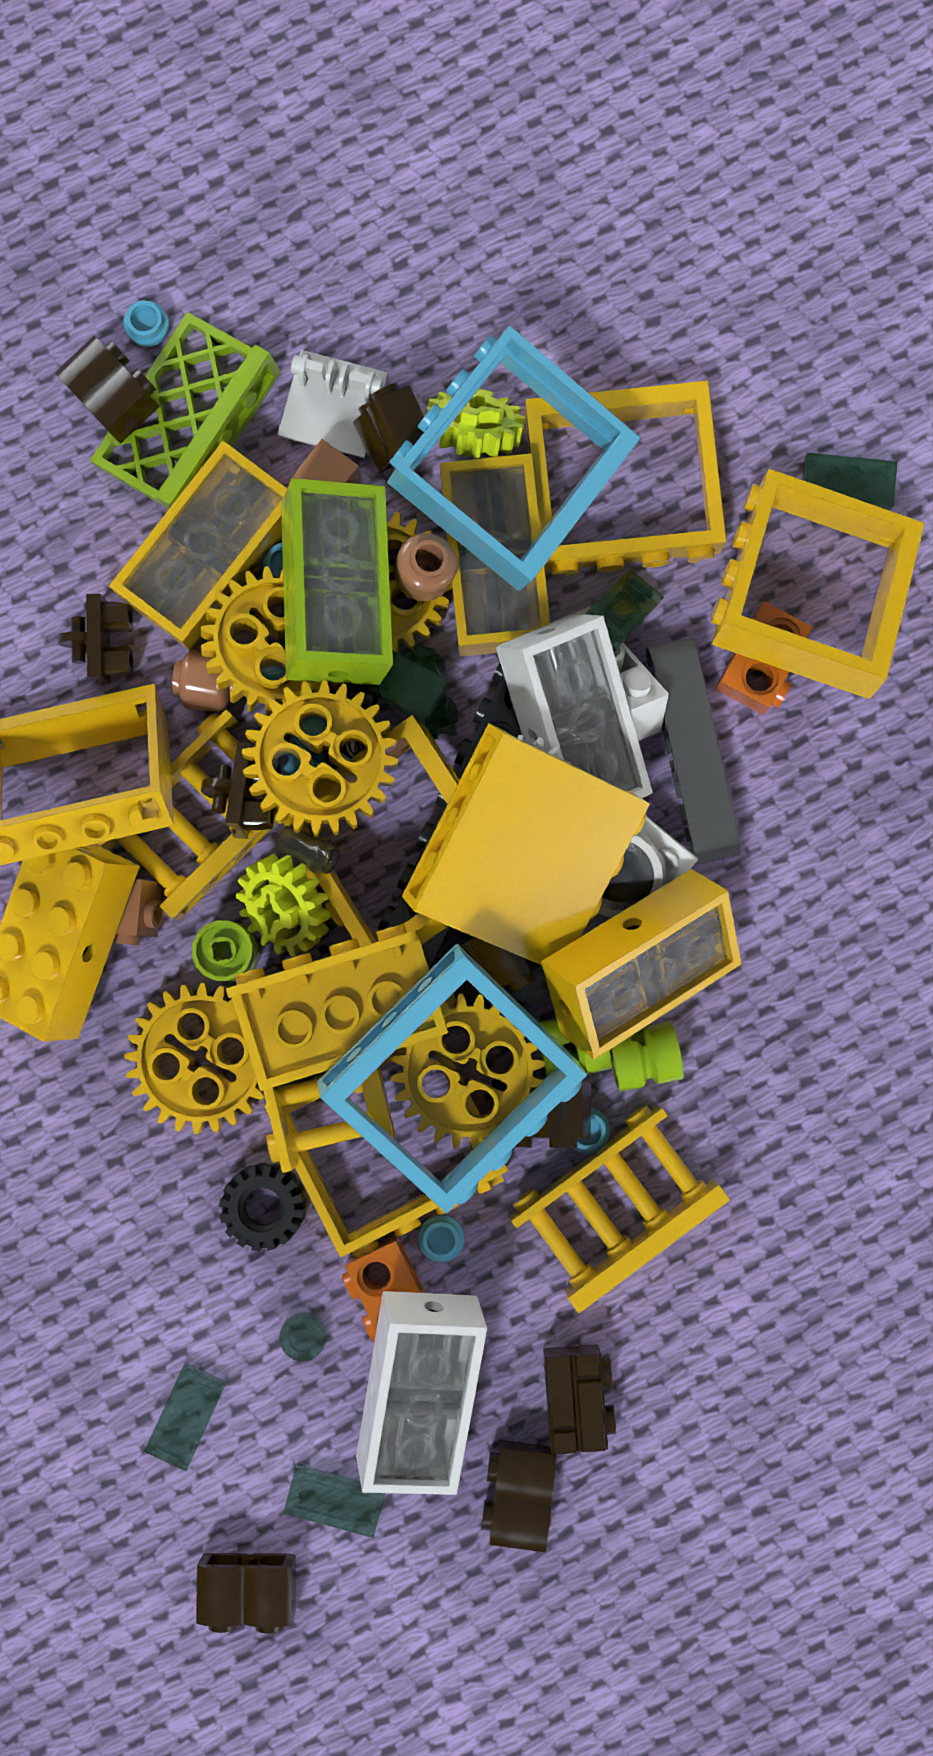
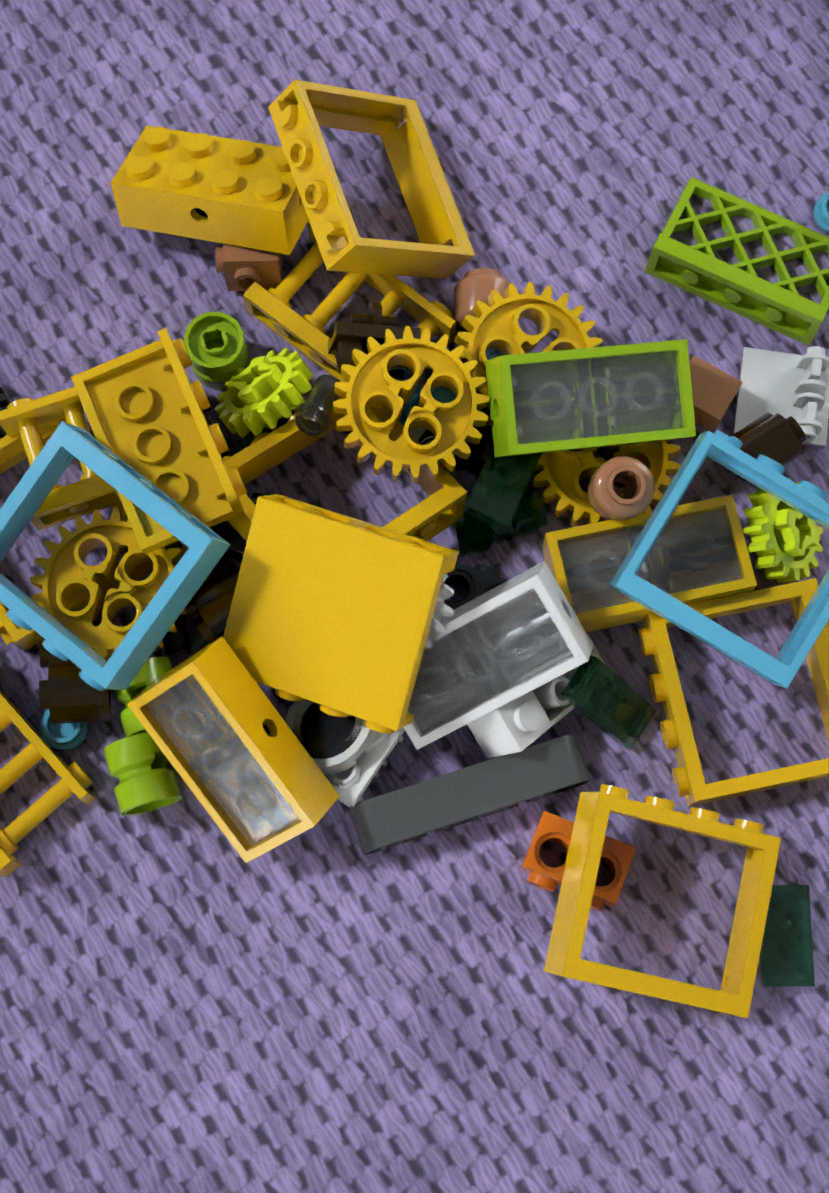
camera: 80 degrees right, 10 degrees down
(101, 620) = (514, 198): dark brown hips -> none
(107, 389) = (762, 181): dark brown brick -> none
(180, 1094) = (74, 324): yellow gear -> none
(204, 540) = (618, 278): clear brick -> none

